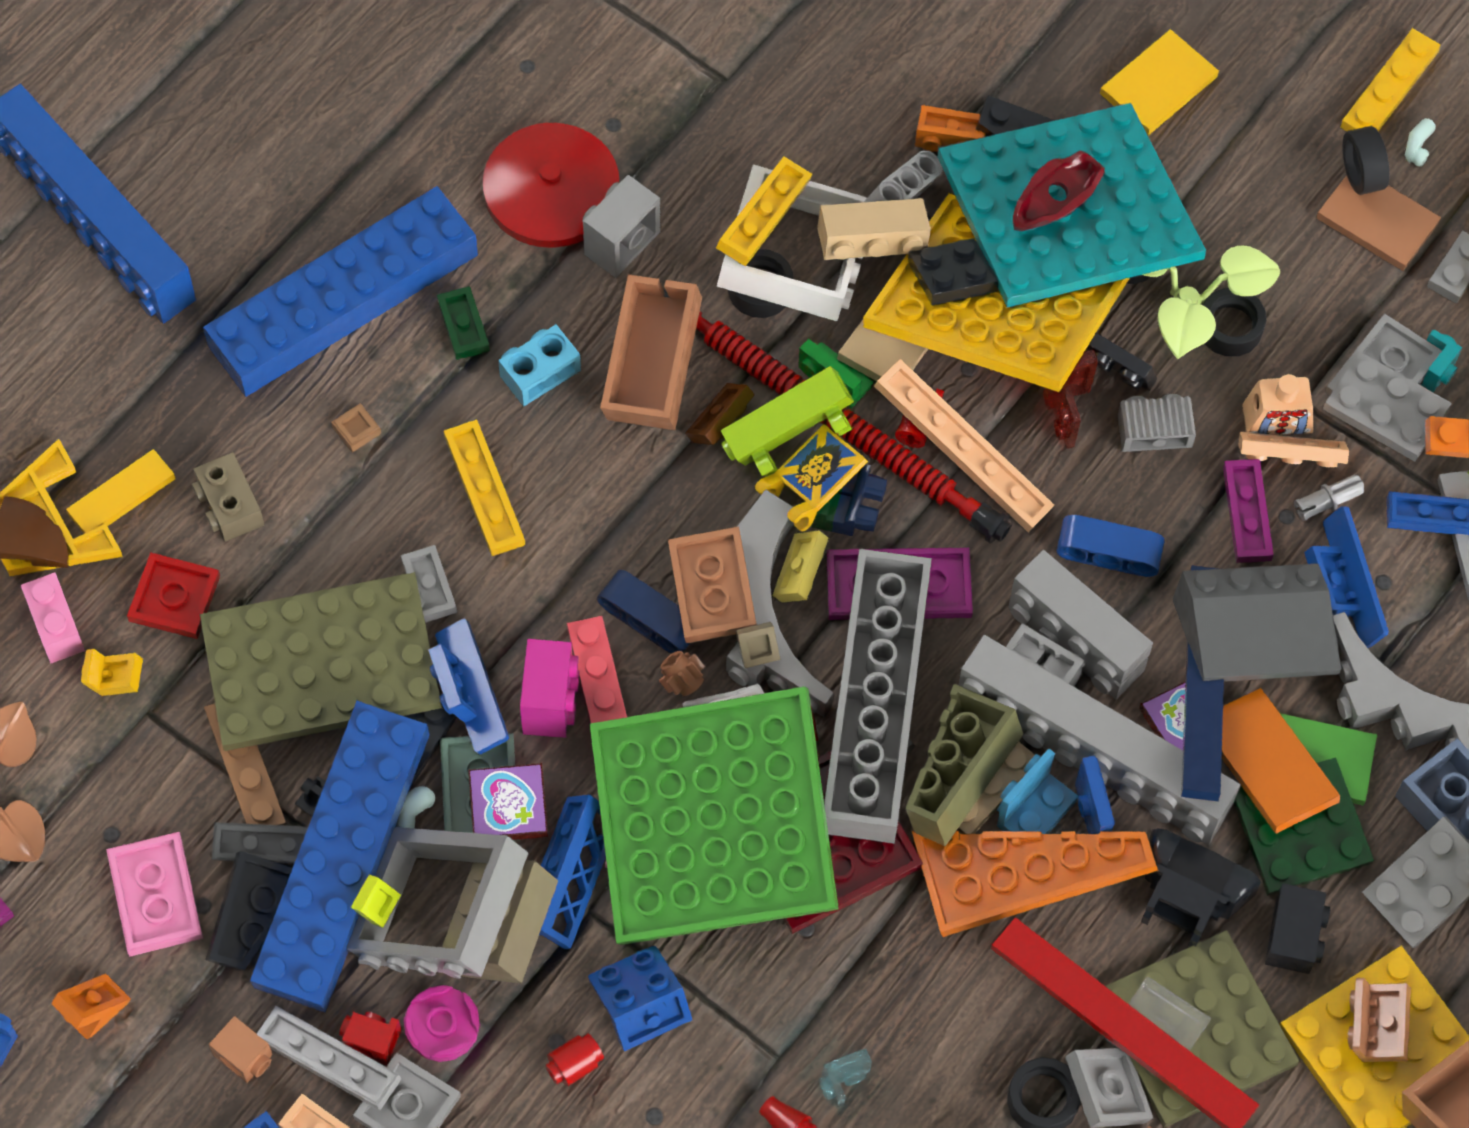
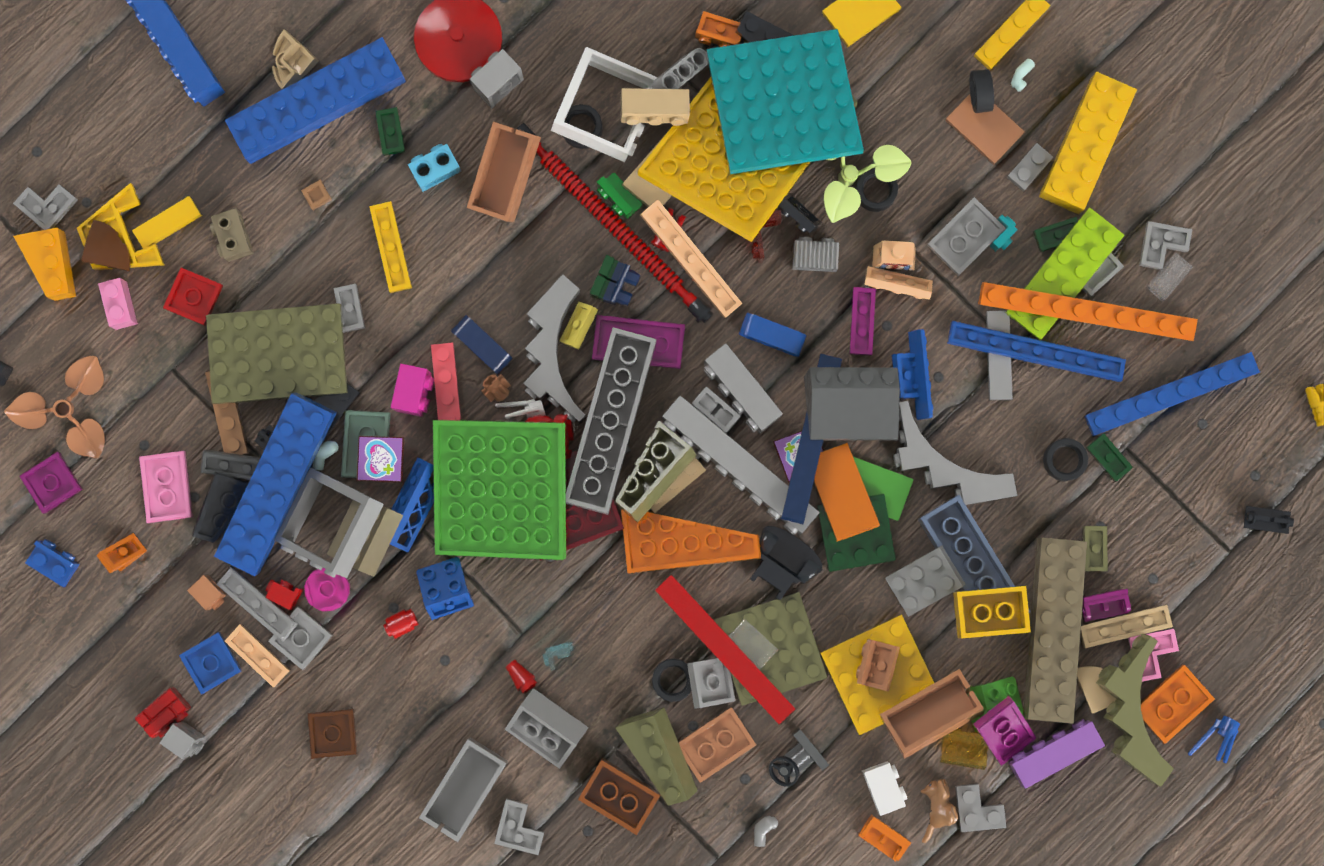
camera: 10 degrees right, 20 degrees up
(111, 673) = (150, 343): yellow bracket -> none
(295, 239) = (292, 60): none -> tan brick
(375, 901) = (291, 519): neon yellow plate -> none
(467, 686) = (363, 380): bracket -> none
(712, 584) = (520, 337): nougat plate -> none
(720, 413) = (543, 215): reddish brown plate -> none
(758, 644) = (542, 381): dark tan plate -> none
(764, 211) = (586, 86): yellow plate -> none
(787, 417) = (582, 227): lime brick -> none
(814, 474) = (595, 266): flag -> none
(953, 271) = (700, 142): black plate -> none
(1036, 800) = (699, 499): dark azure bracket -> none
(1075, 174) = (789, 86): dark red piece -> none
(1093, 798) = (730, 506): blue plate -> none
(1296, 929) = (841, 596): black brick -> none
(1329, 497) = (915, 318): light grey axle -> none
(1385, 405) = (962, 263): light grey plate -> none

